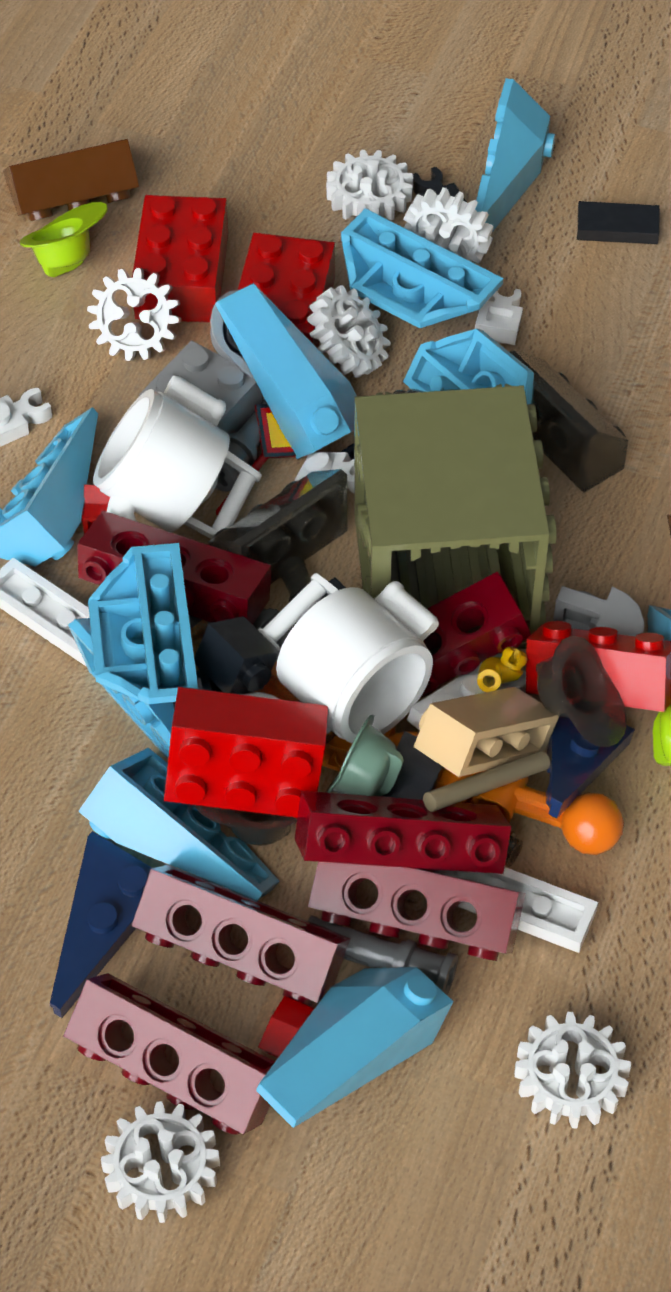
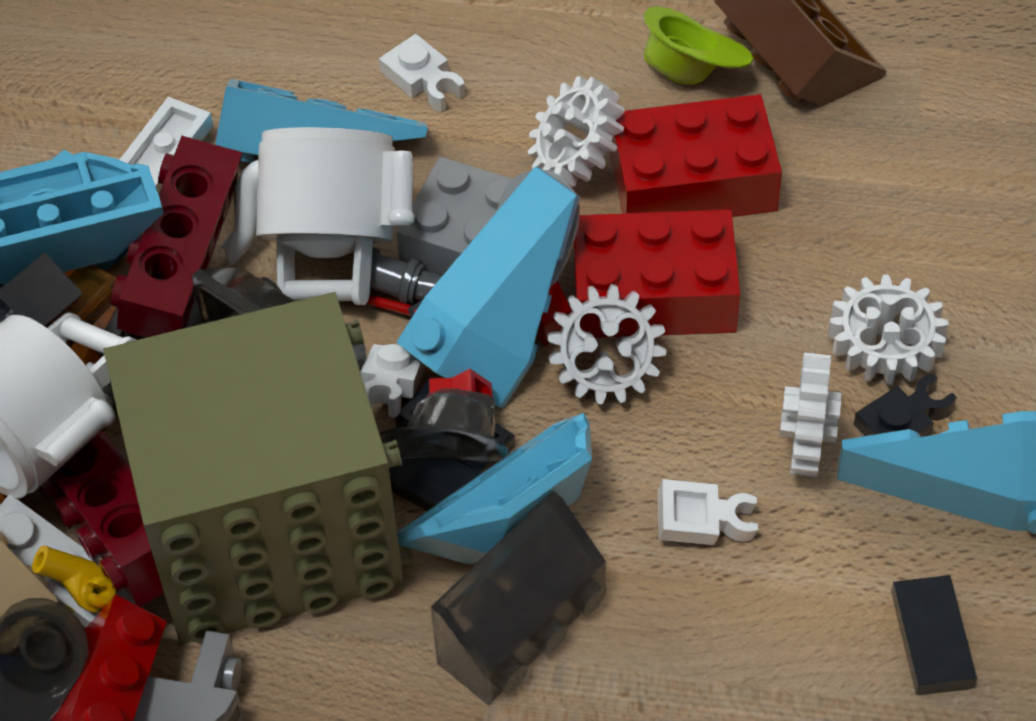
camera: 80 degrees right, 0 degrees up
(411, 273) = (718, 388): medium azure wedge -> none

